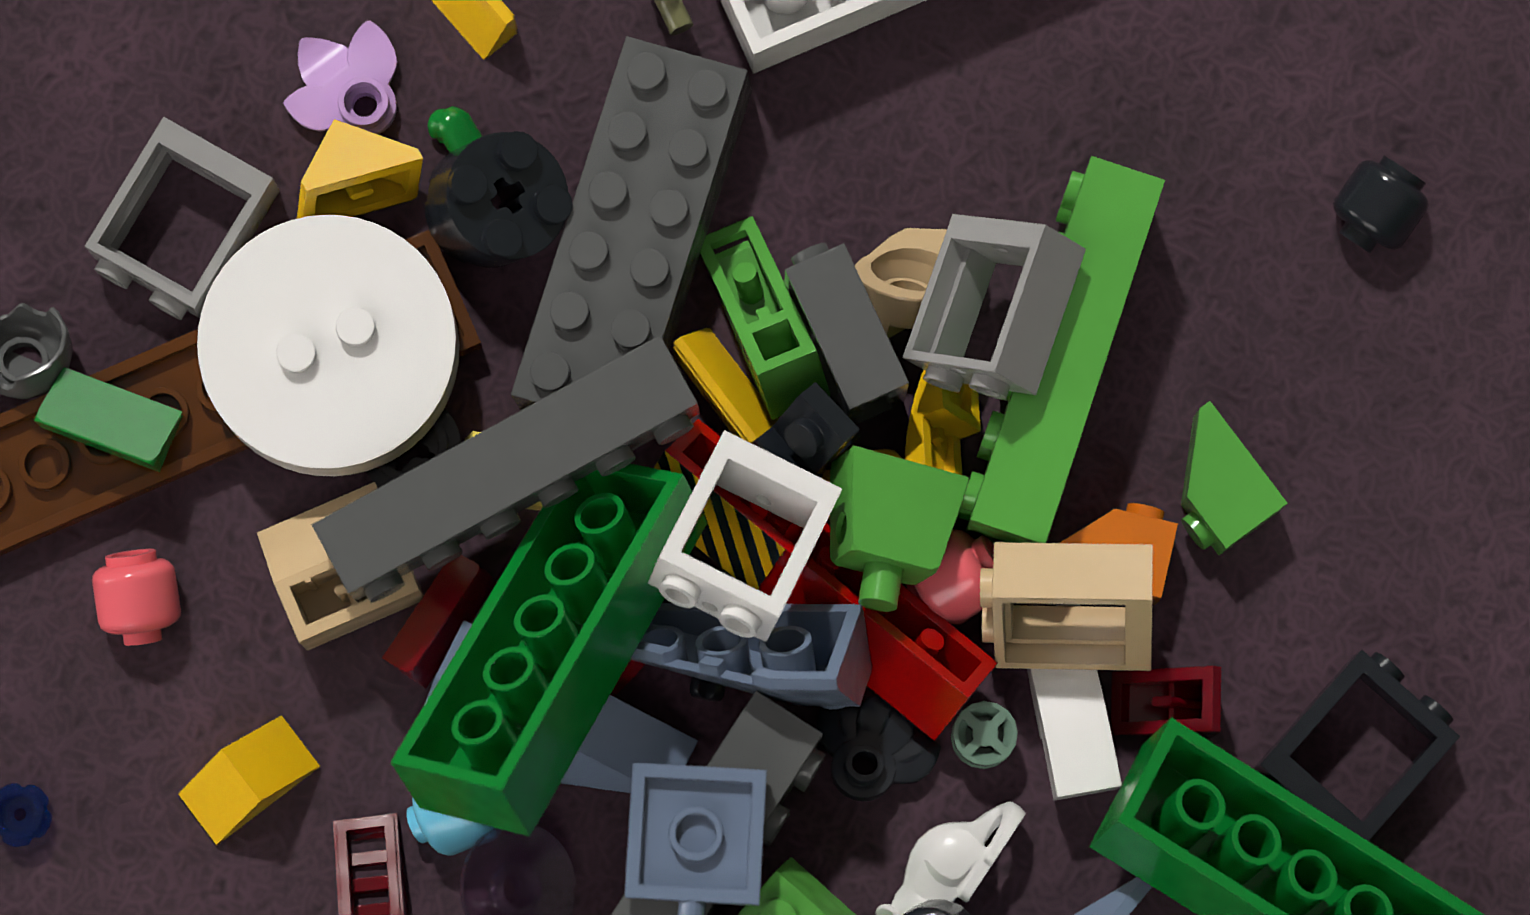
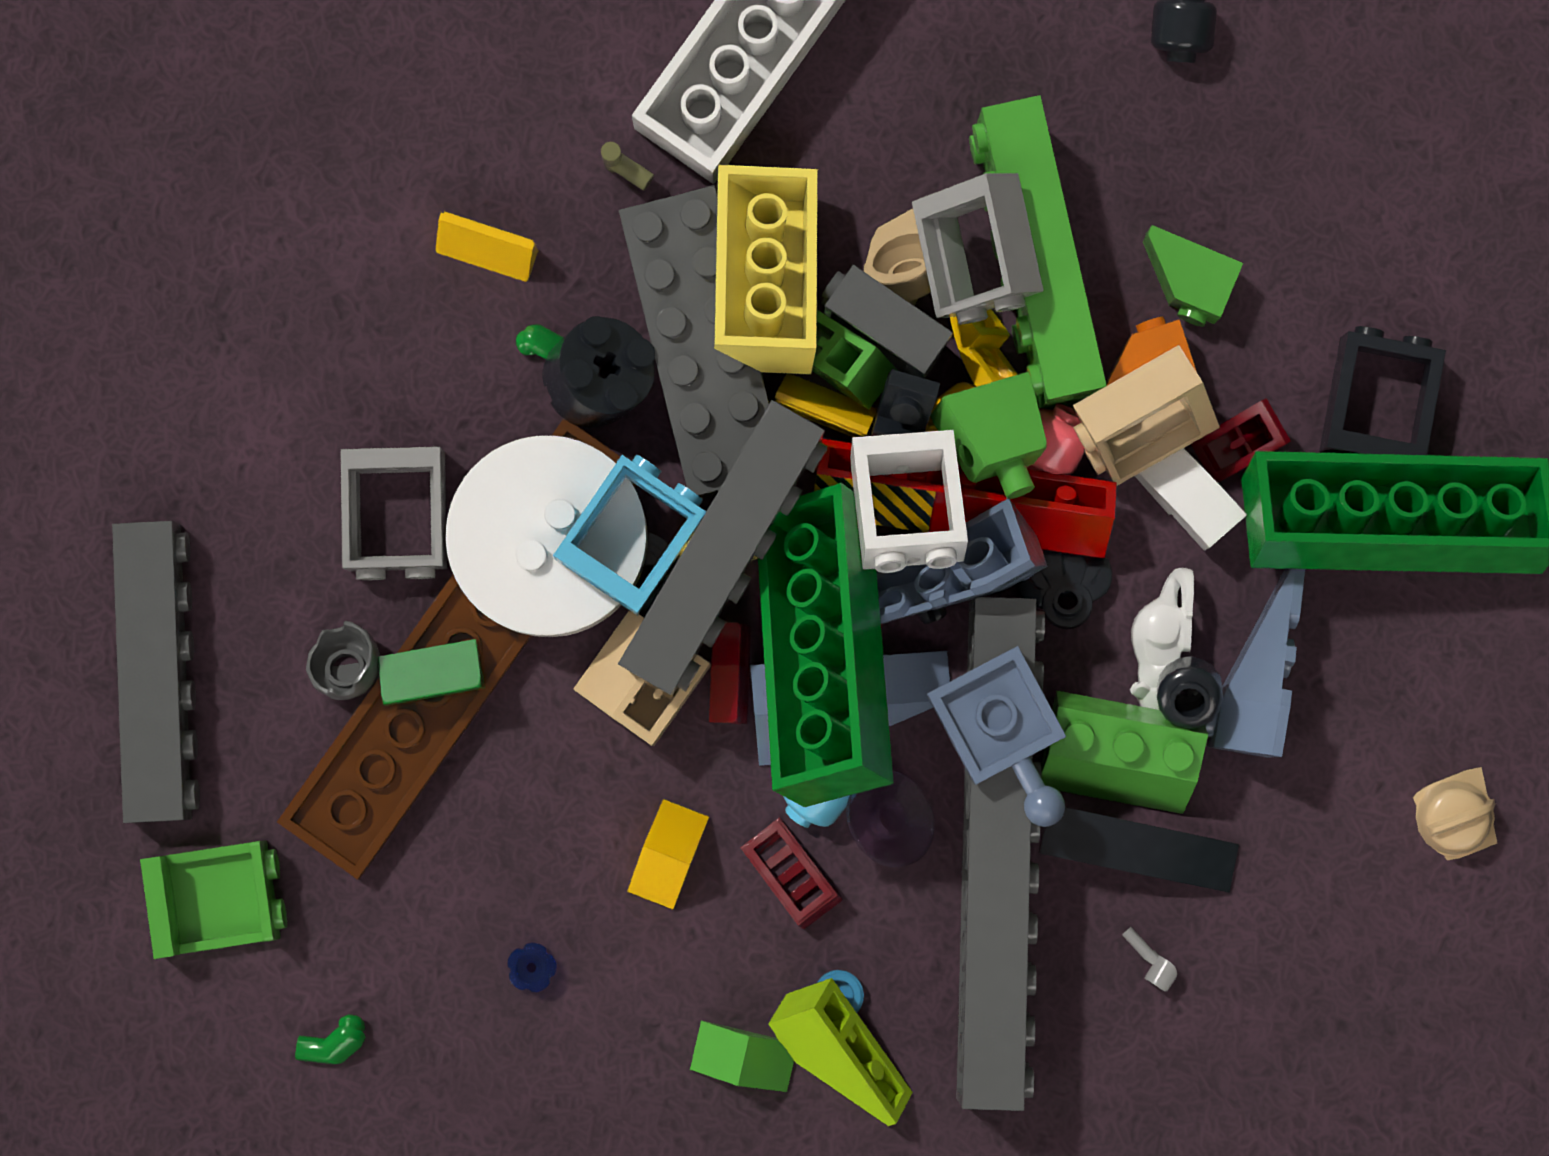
camera: 30 degrees left, 5 degrees up
(136, 596) = (520, 778): coral head -> none
(341, 76) = (438, 352): lavender plate -> none
(358, 173) = (494, 409): yellow slope -> none
(472, 338) = (645, 476): none -> medium azure window
(748, 192) = (767, 267): none -> light yellow slope
(991, 727) = (1143, 528): sand green wheel -> none

